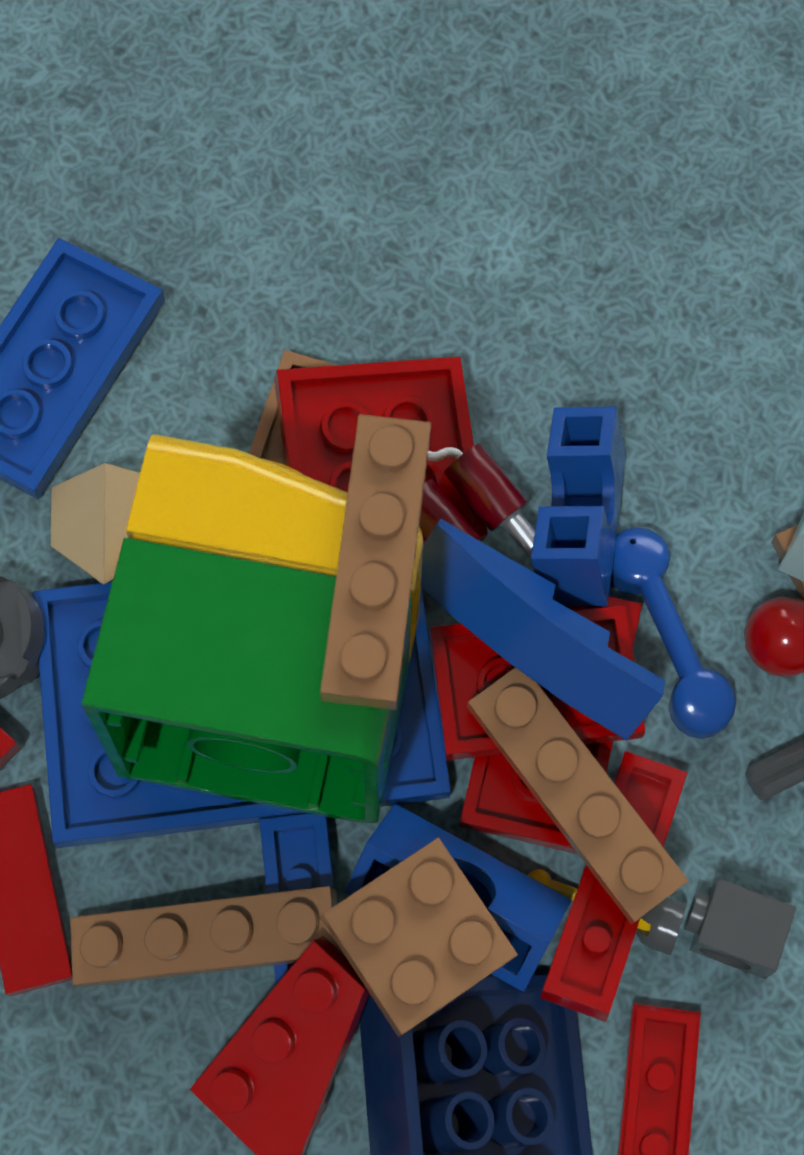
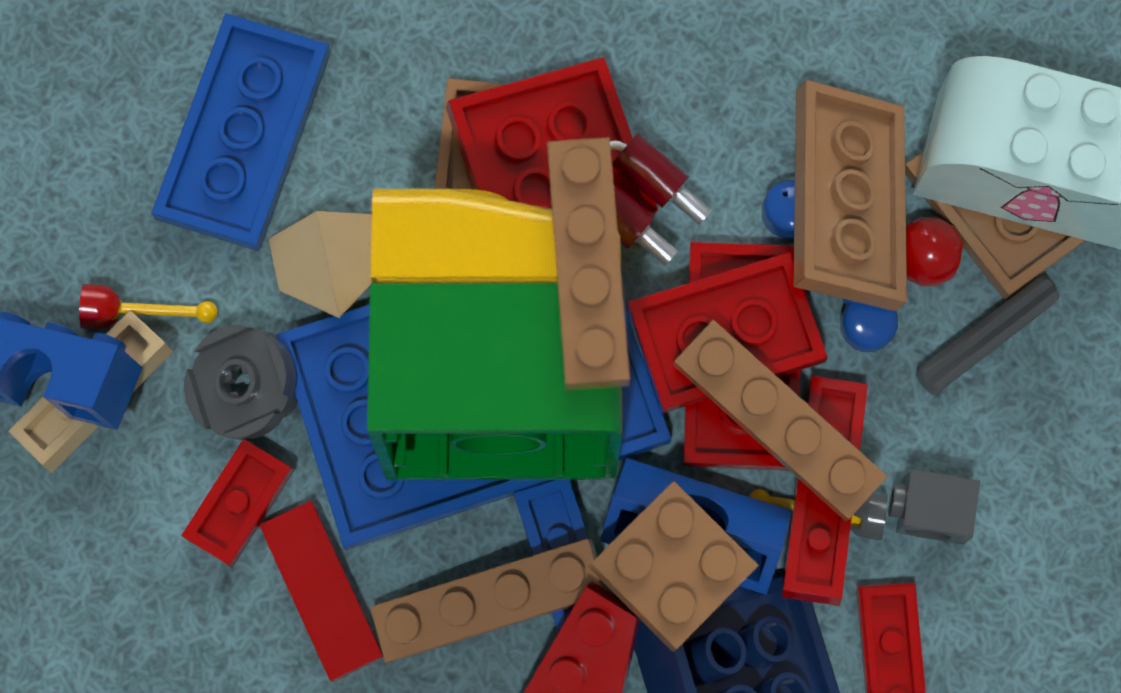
camera: 10 degrees left, 5 degrees up
(534, 633) = (722, 293): blue slope -> none
(579, 529) = (738, 188): blue arch -> none
(705, 559) = (850, 196): none -> medium nougat plate

